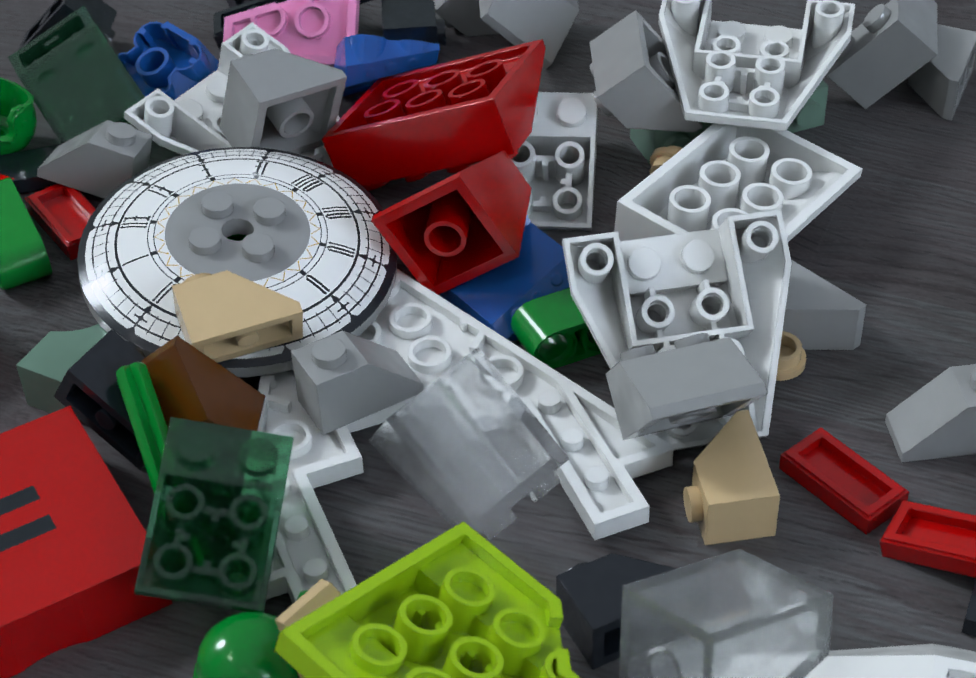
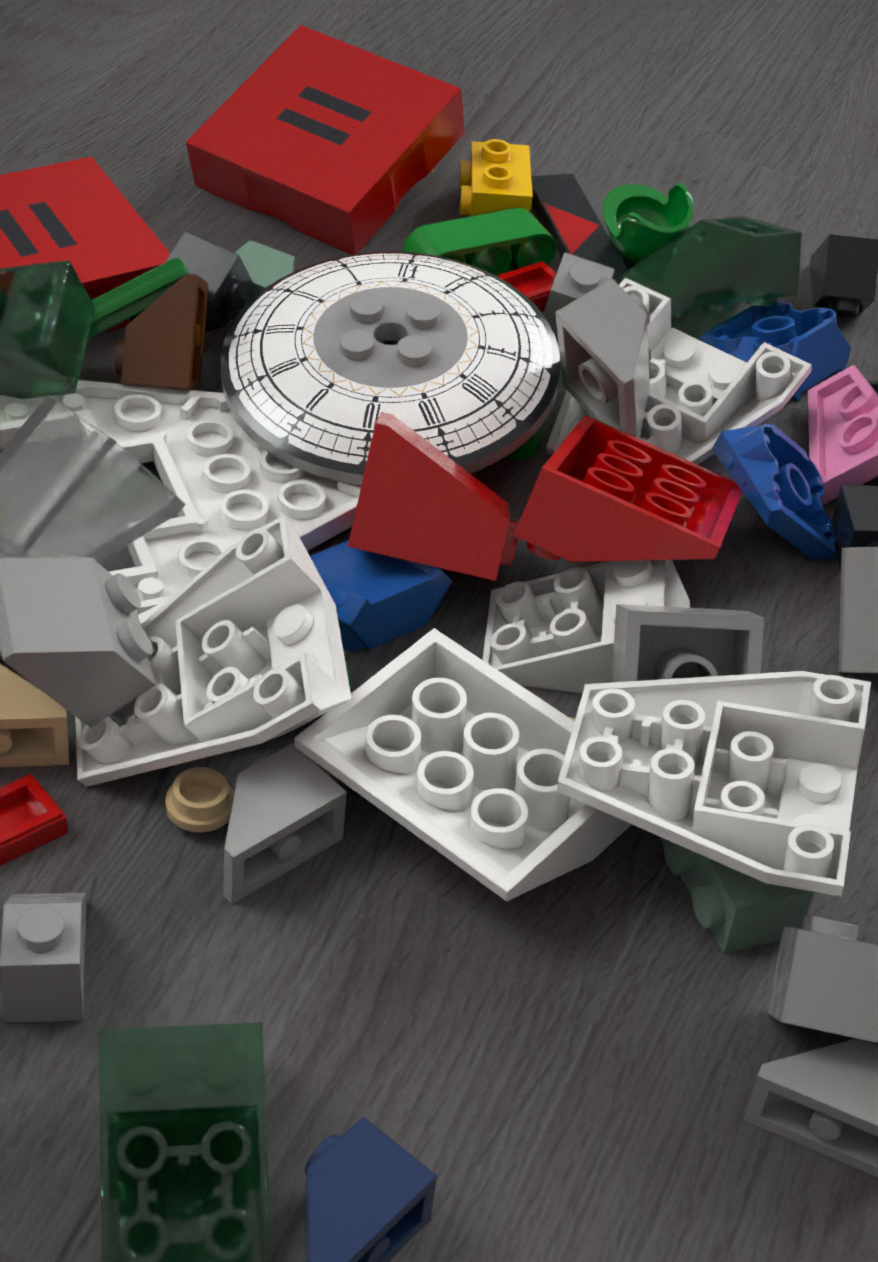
camera: 85 degrees right, 0 degrees up
(233, 315) = (249, 322): tan slope -> none
(350, 379) = (180, 427): light grey slope -> none

